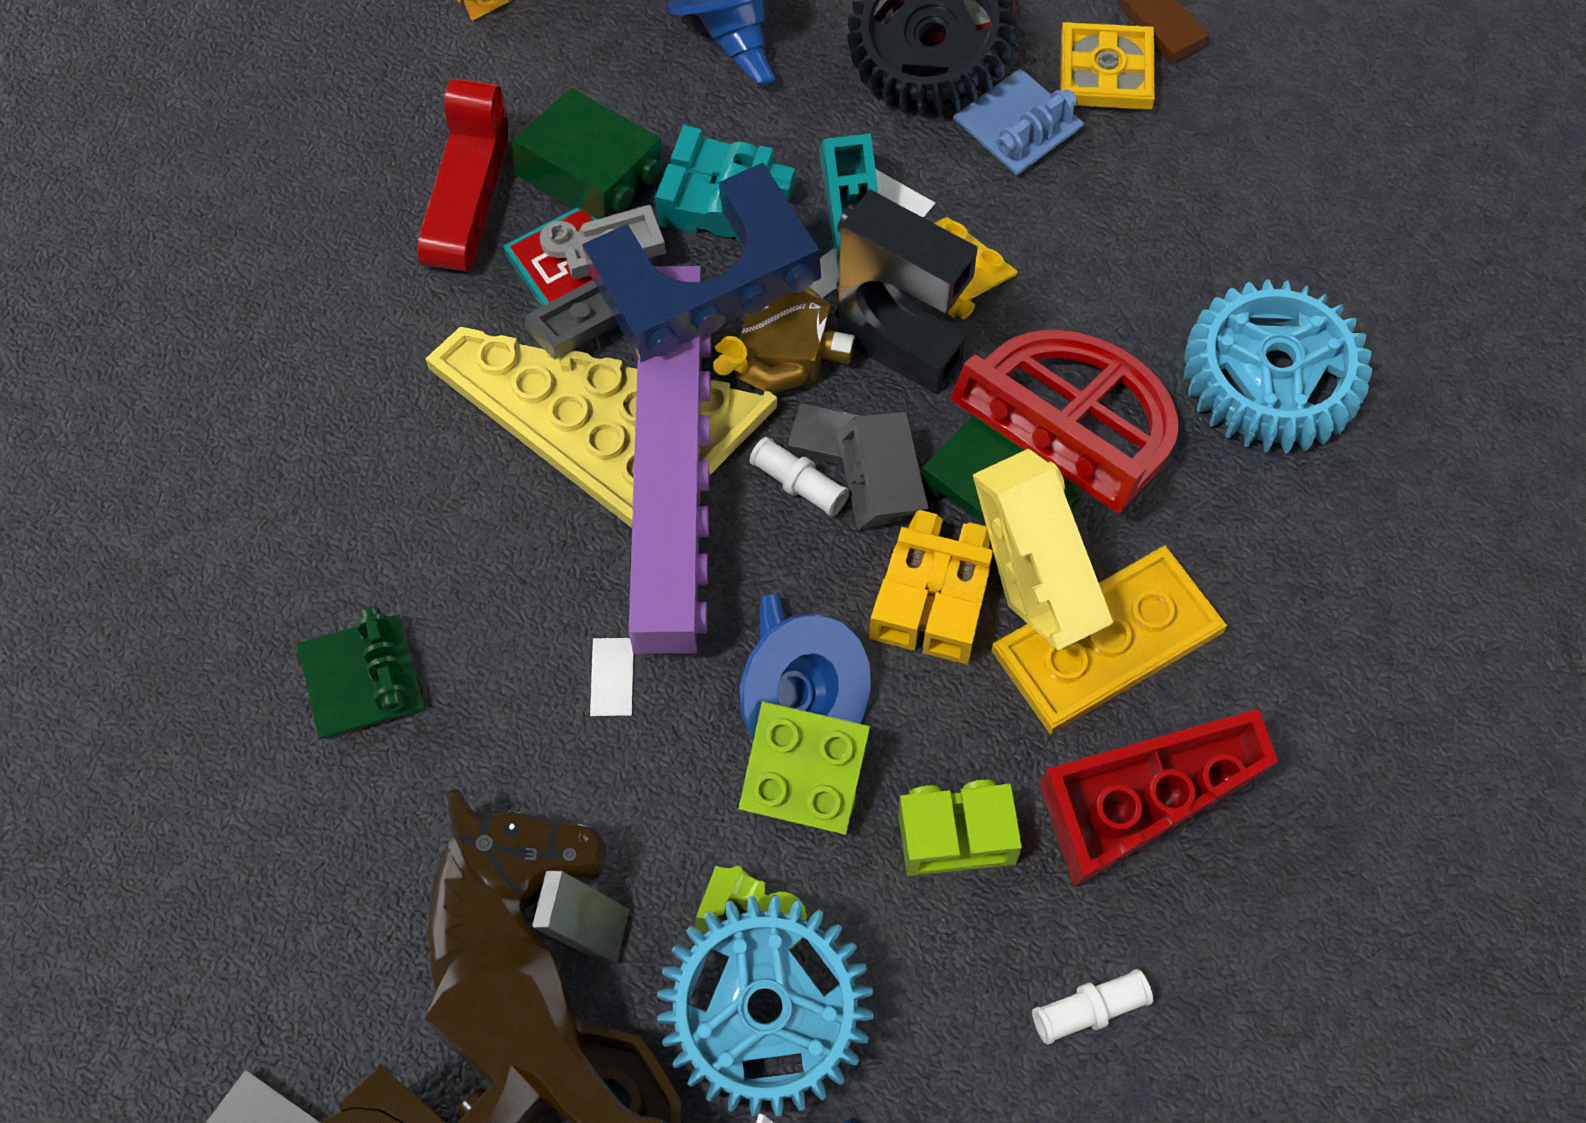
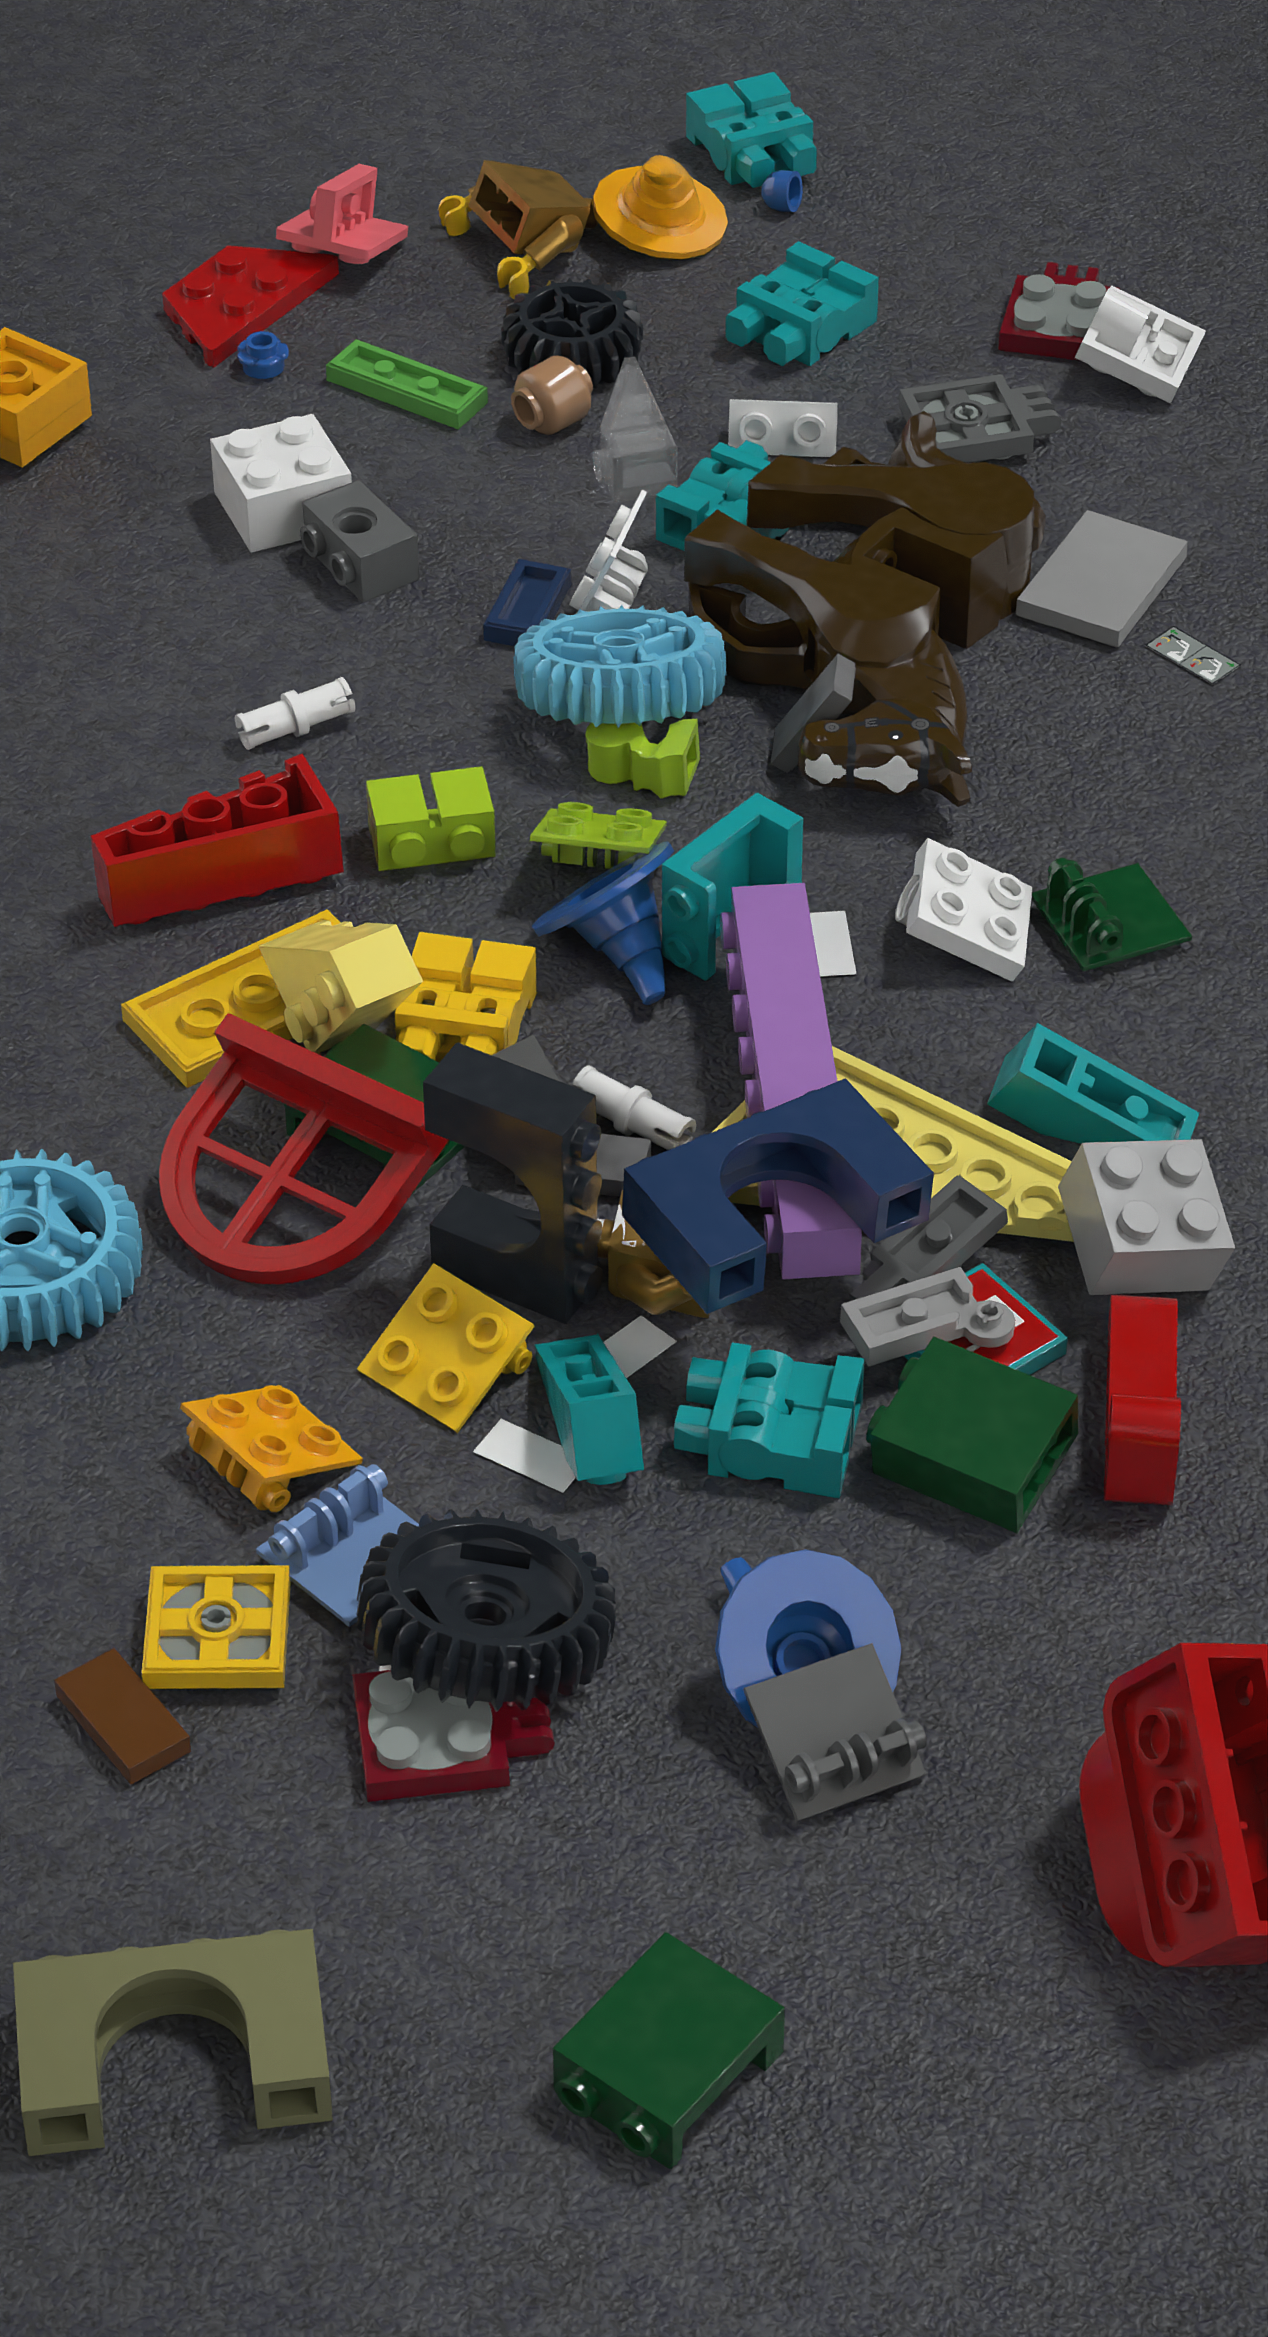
camera: 175 degrees right, 20 degrees down
(179, 1056) = (1193, 655): none -> light grey sticker
(421, 304) = (1146, 1217): none -> light grey brick
(441, 449) = (1083, 1097): none -> teal slope
(487, 666) = (967, 909): none -> white plate
(698, 691) = (745, 848): none -> teal panel
(1079, 197) = (264, 1441): none -> light orange hinge

